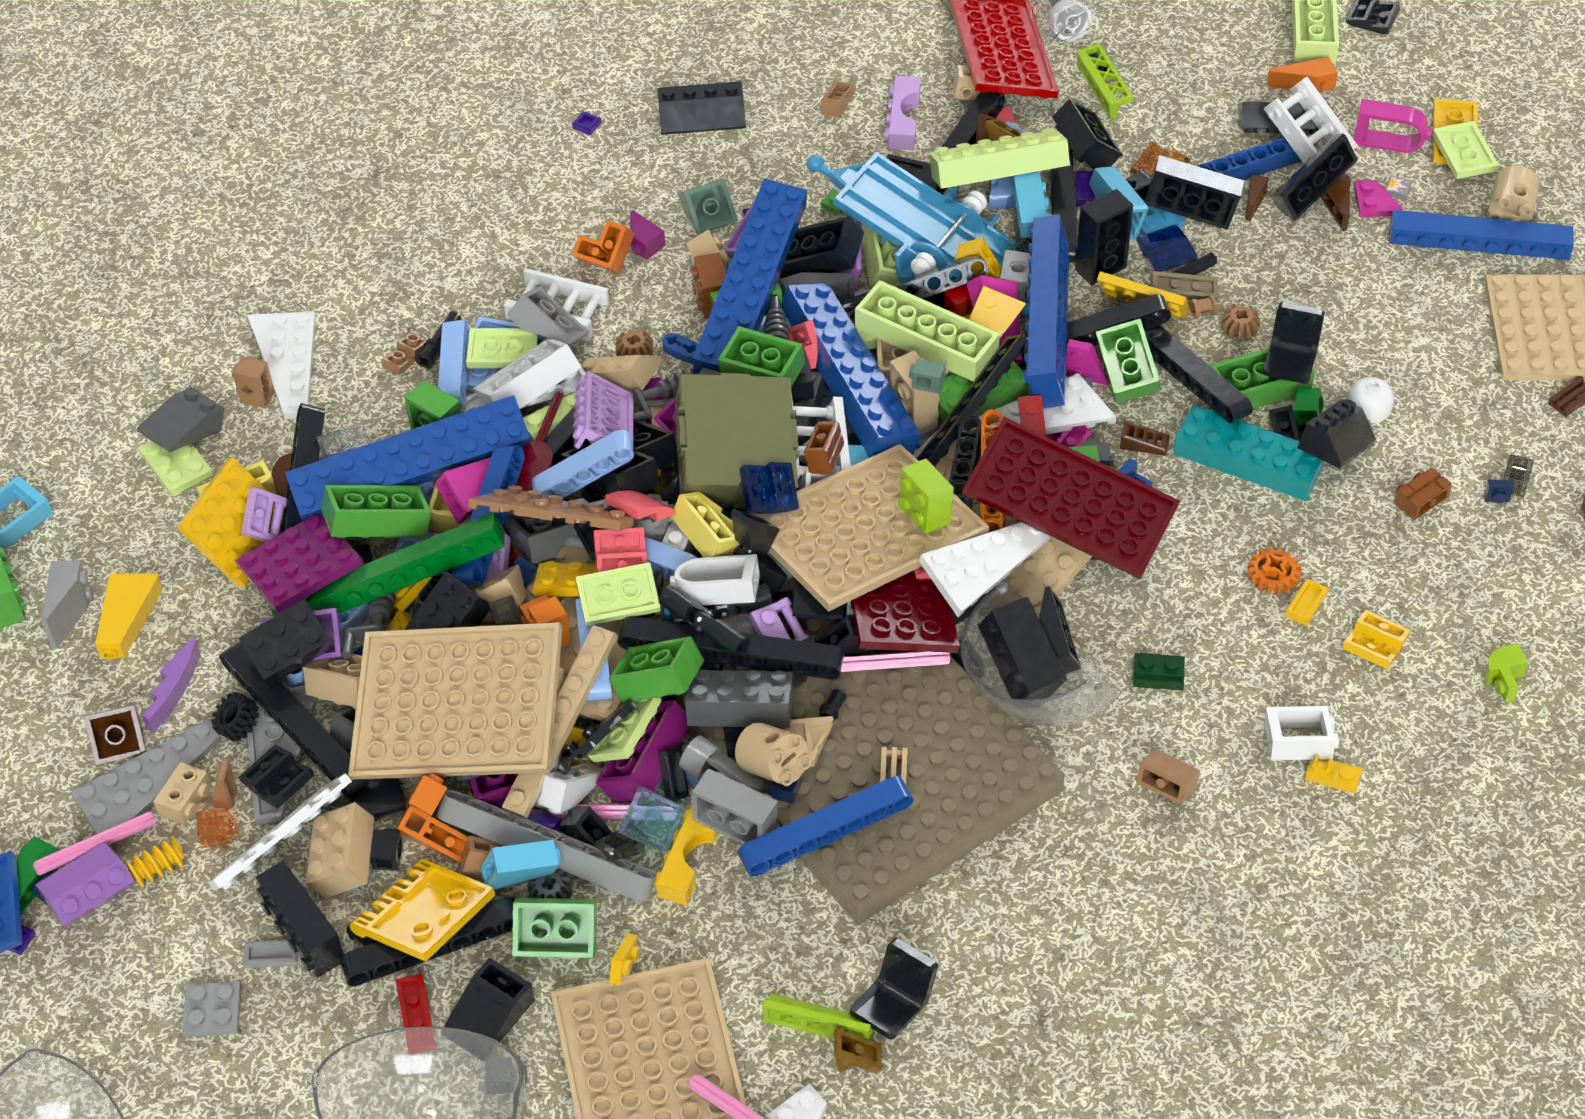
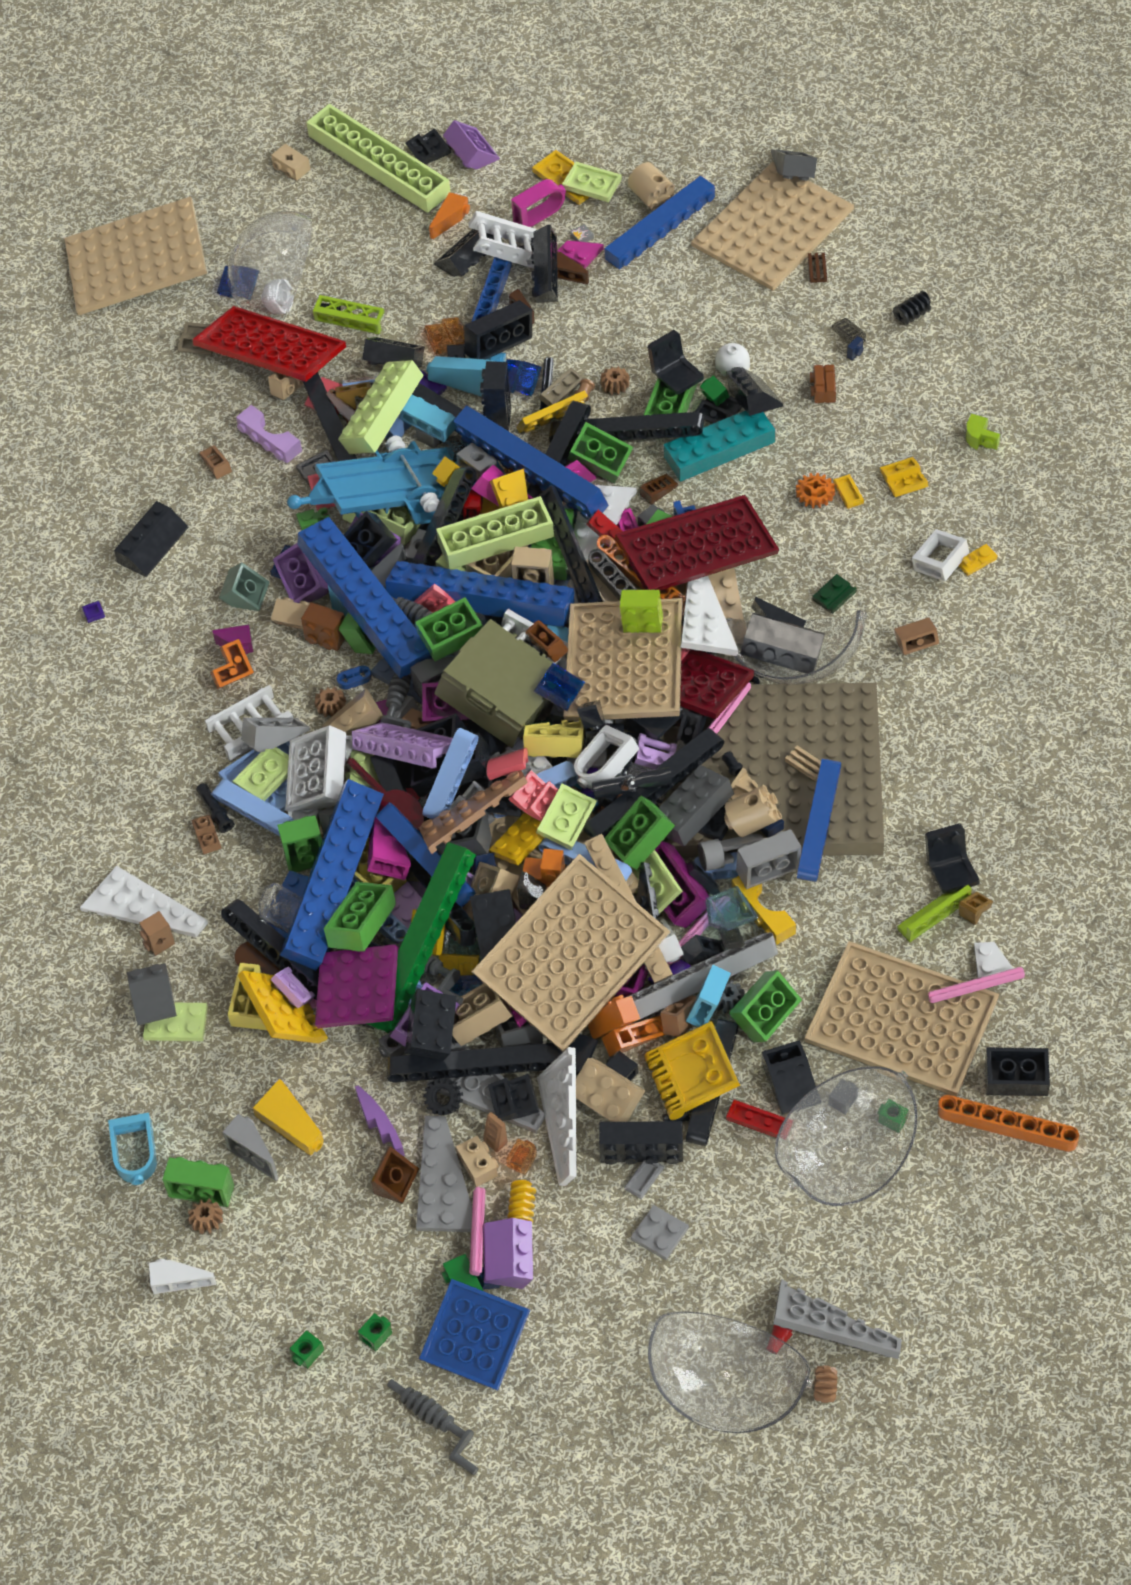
camera: 50 degrees left, 5 degrees up
(624, 957) = (816, 984): yellow plate -> none
(928, 375) = (547, 550): sand green brick -> none
(1408, 39) = (469, 145): none -> medium lavender slope

